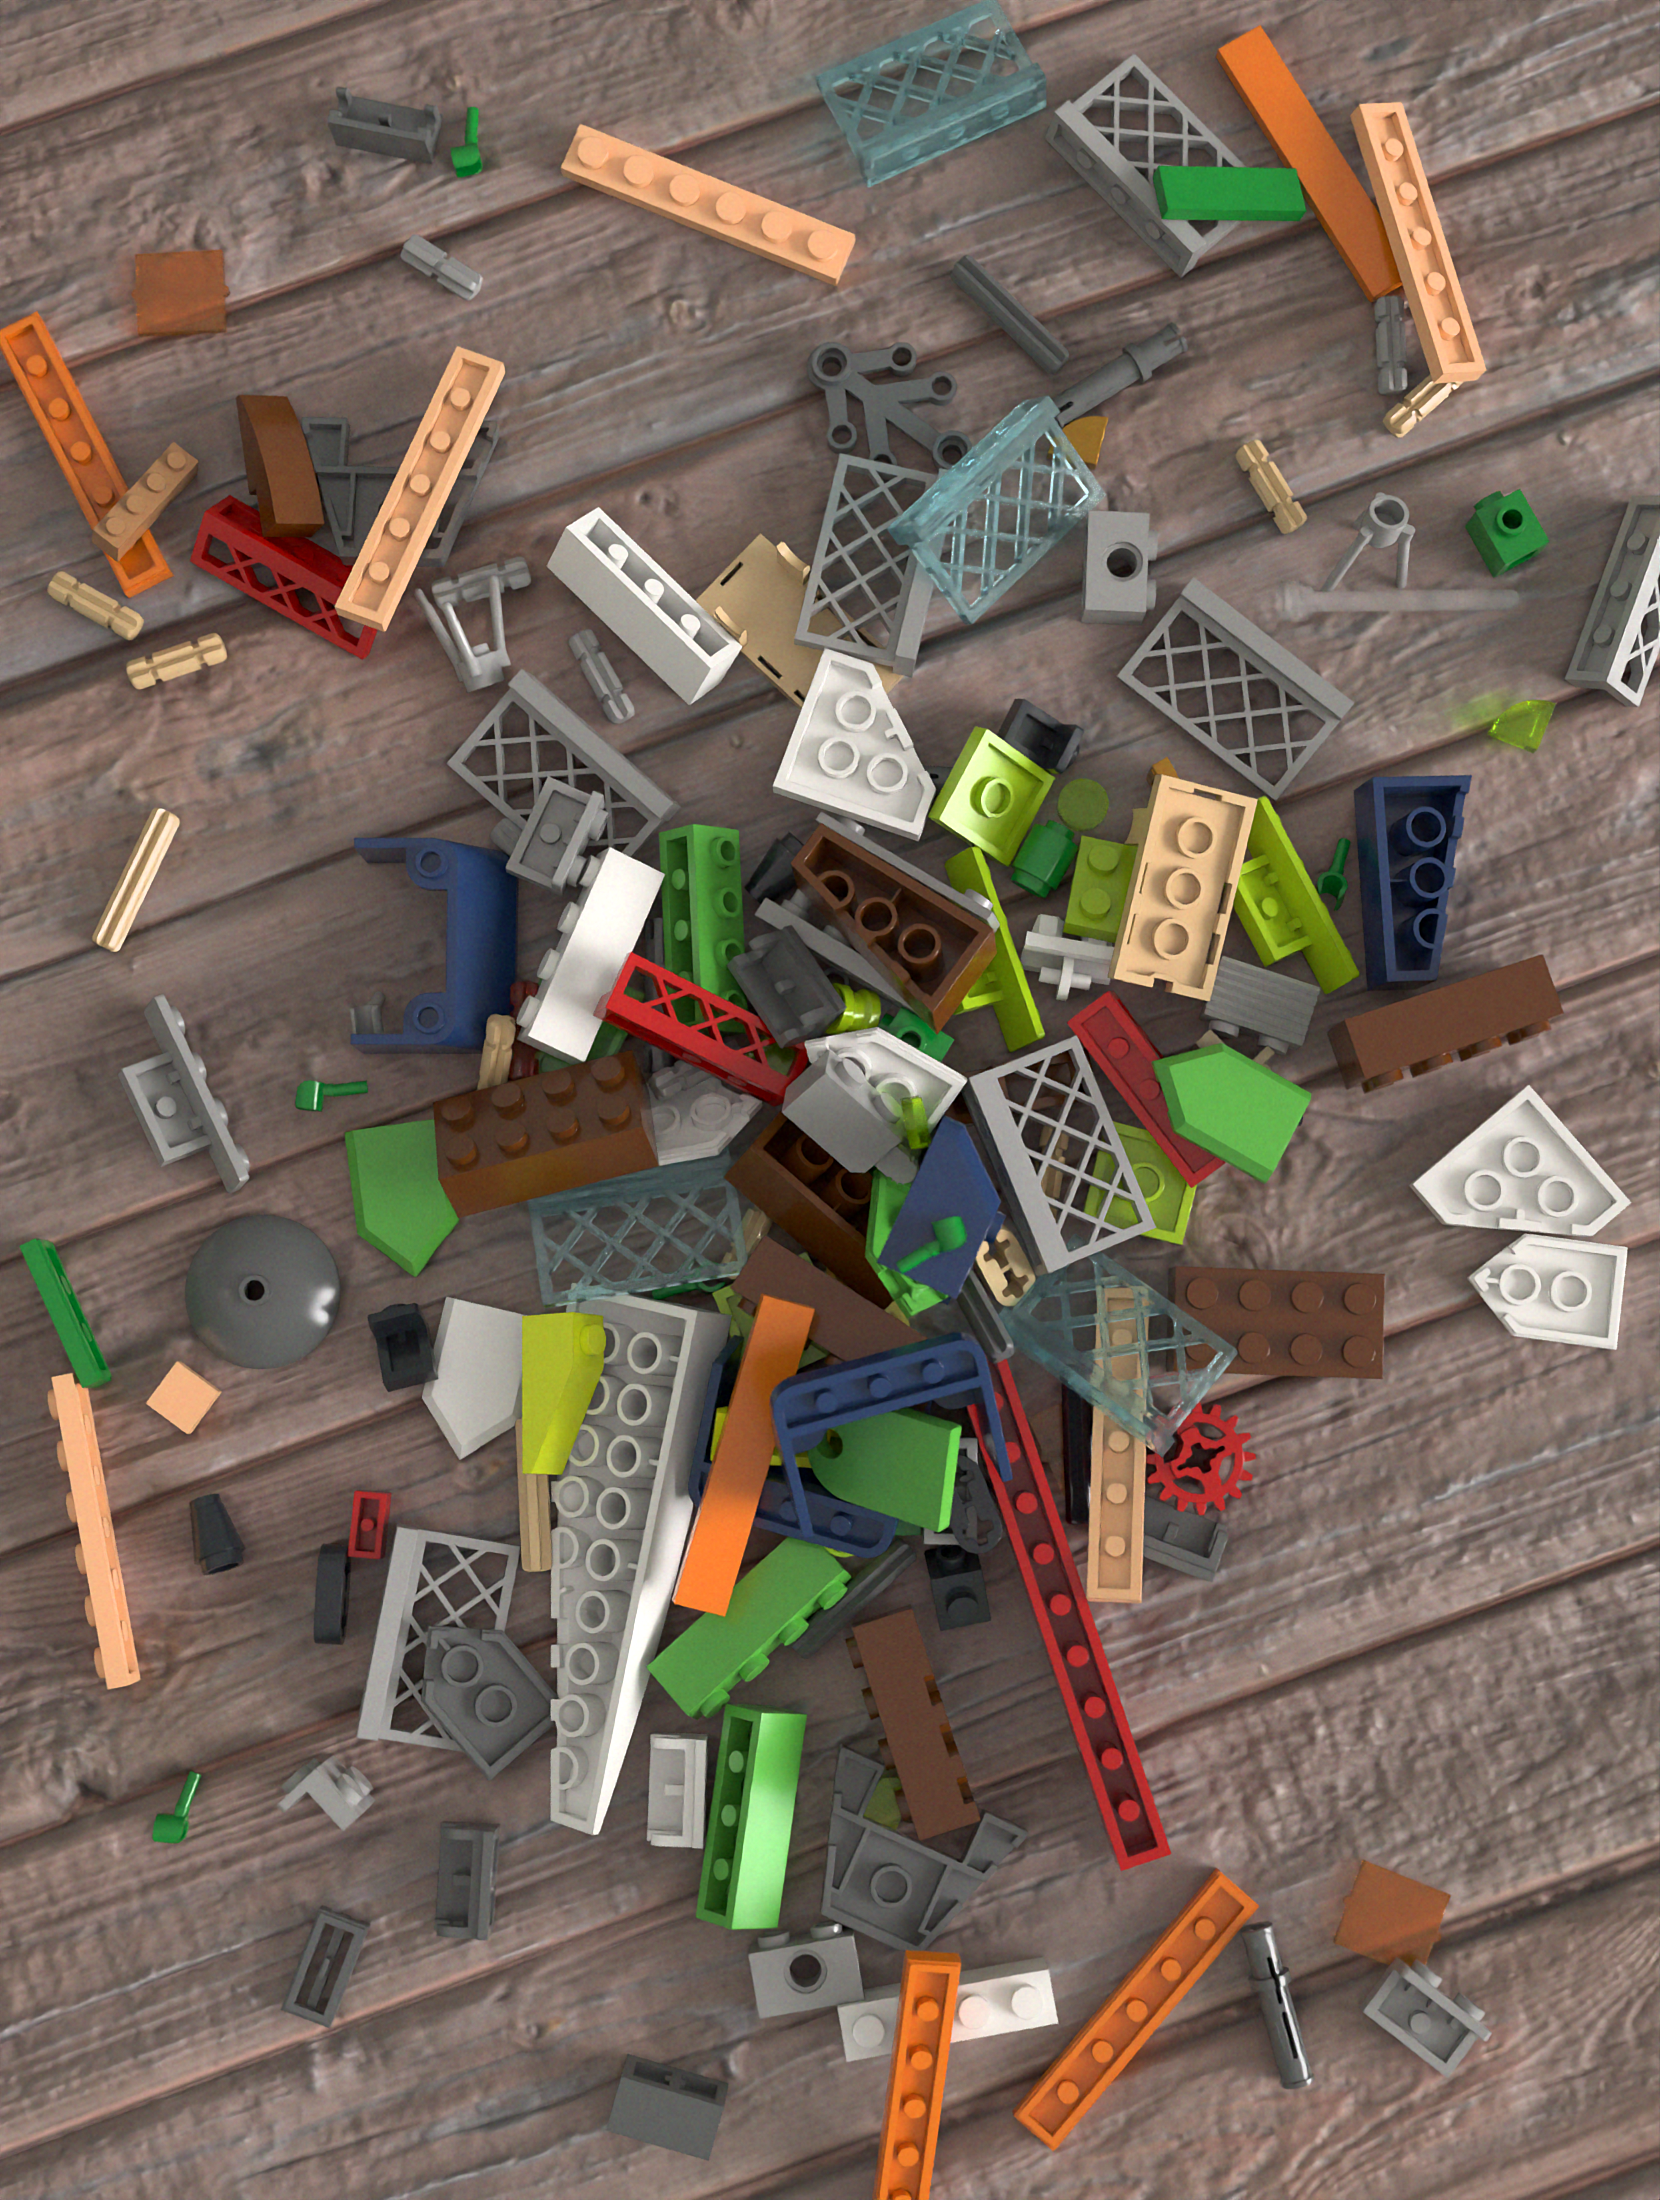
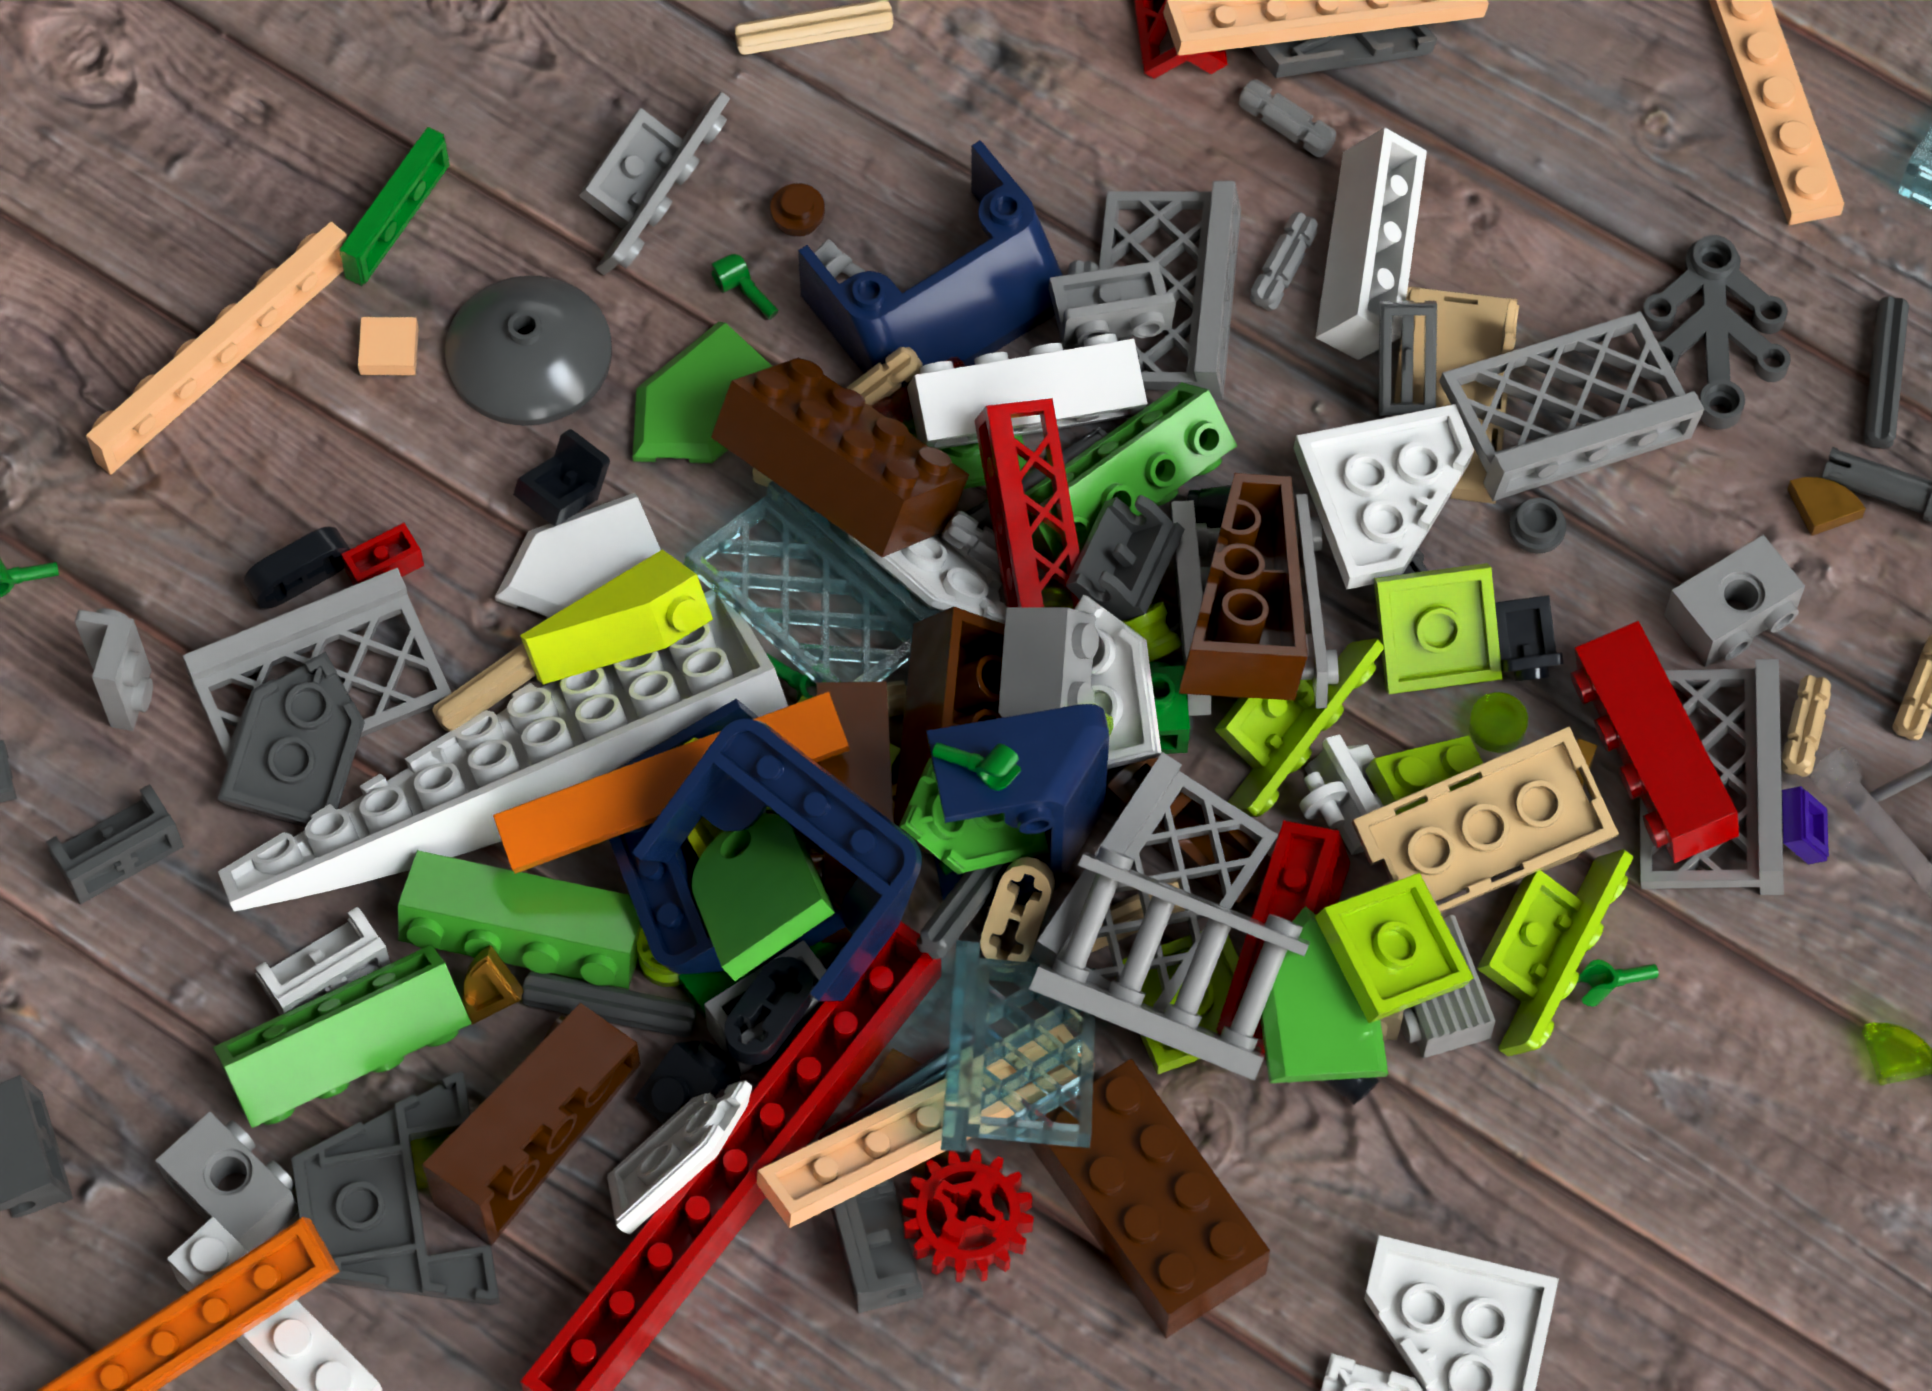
camera: 55 degrees right, 20 degrees down
(214, 1536) = (280, 445): black cone -> none
(291, 1006) = (797, 209): none -> reddish brown plate
(473, 665) = (1214, 155): light grey plant -> none
(739, 632) = (1407, 310): none -> dark grey tile
(785, 1680) = (489, 986): none -> pearl gold tile
(951, 659) = (1537, 525): none -> dark grey plate
(965, 483) = (1710, 414): clear light blue fence -> none
(1021, 1644) = (674, 1155): none -> white tile
(1044, 858) = (1420, 716): green brick -> none
(1179, 1217) = (1180, 1021): none -> light grey fence
(1195, 714) = (1656, 743): none -> red brick
(1234, 1024) = (1394, 947): none -> lime plate
(1244, 593) = (1806, 726): none -> tan axle
(1320, 654) = (1805, 825): none -> dark purple tile
(1405, 871) = (1676, 1024): dark blue wedge -> none
(1446, 1021) = (1550, 1150): reddish brown brick -> none

